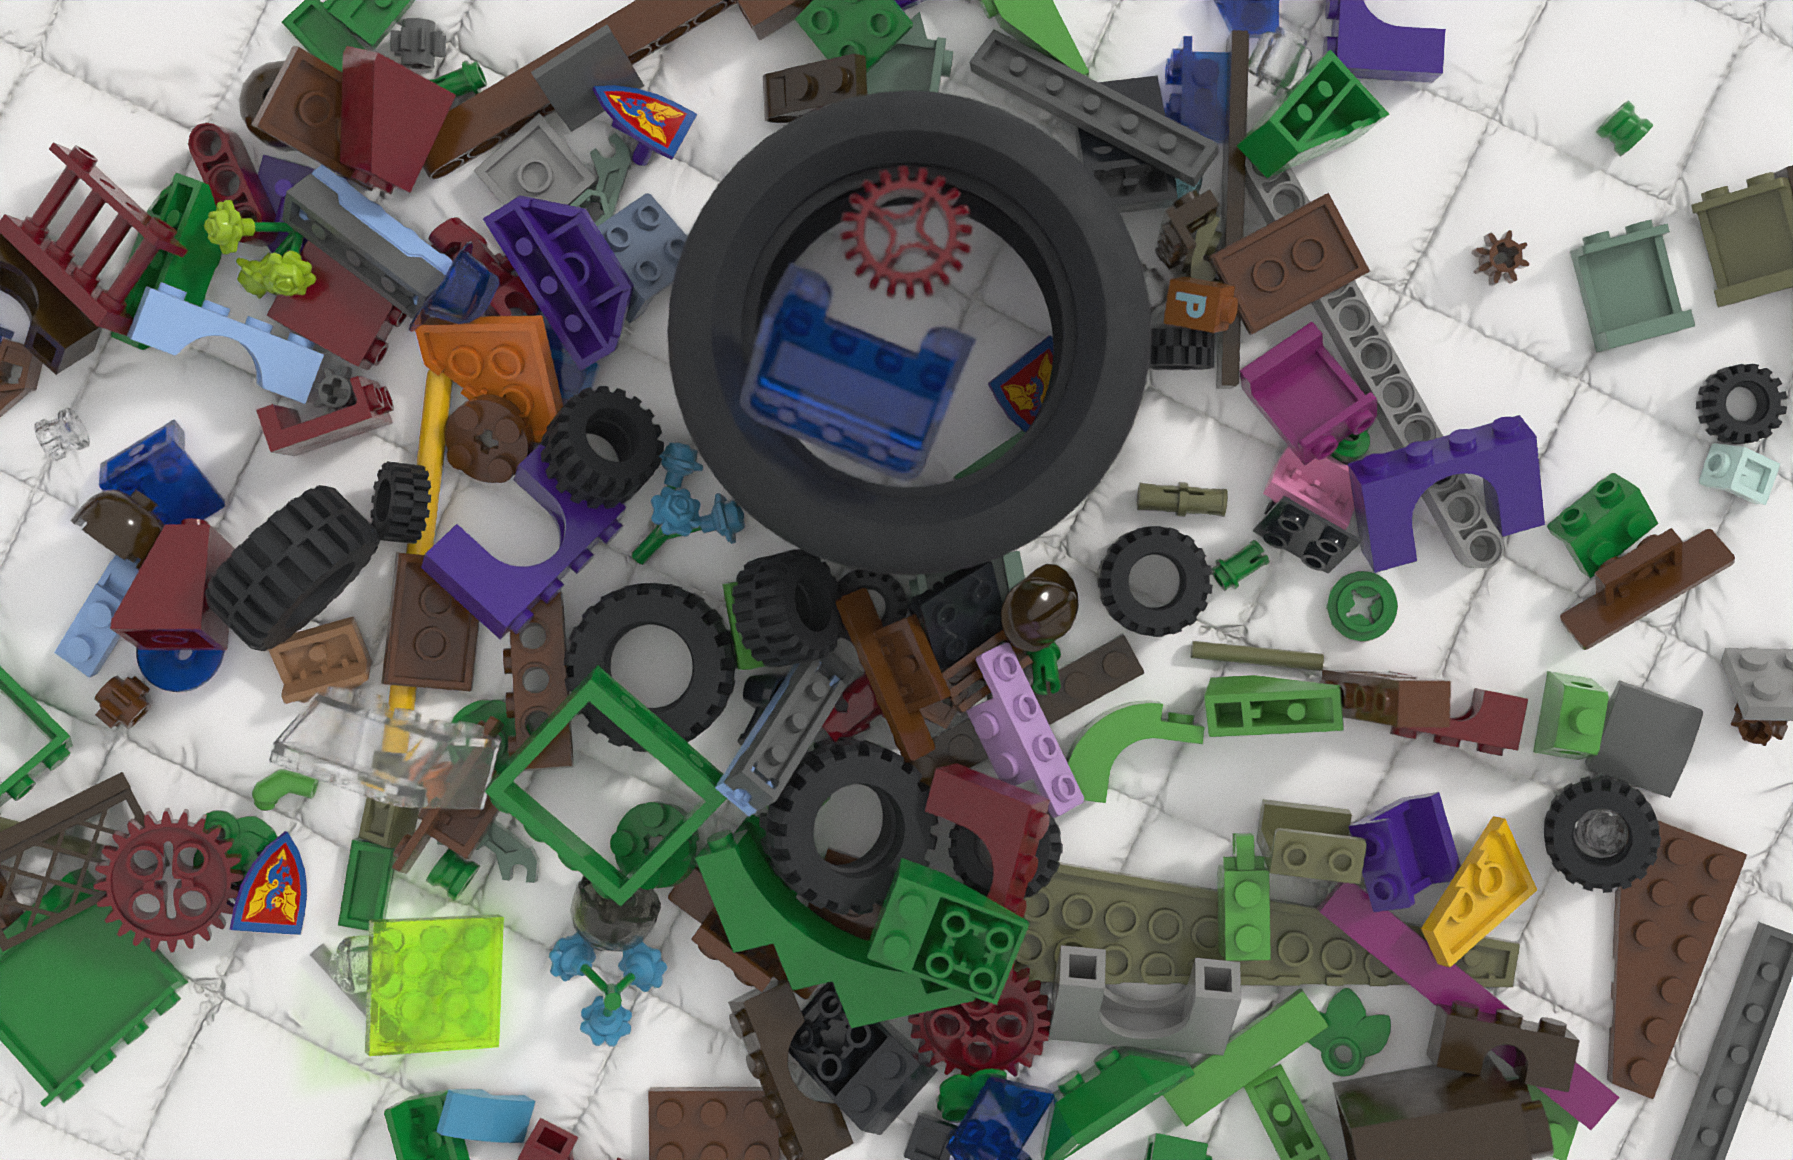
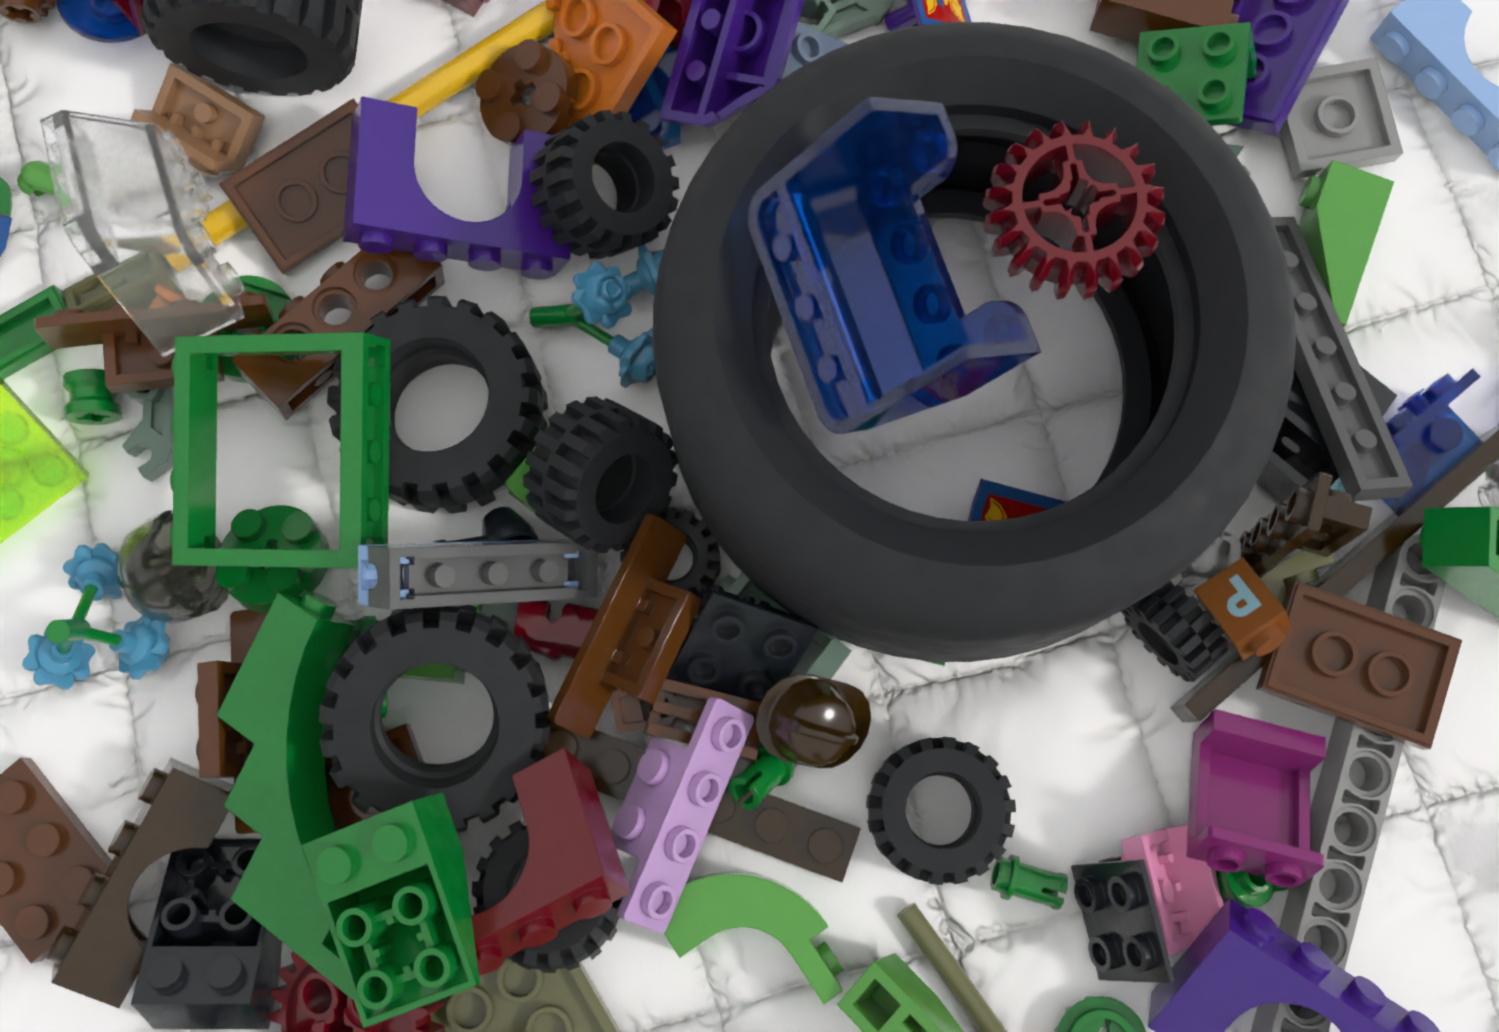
camera: 55 degrees right, 10 degrees down
(400, 502) = (402, 64): black tyre -> none
(1182, 499) = (1039, 768): olive pin -> none

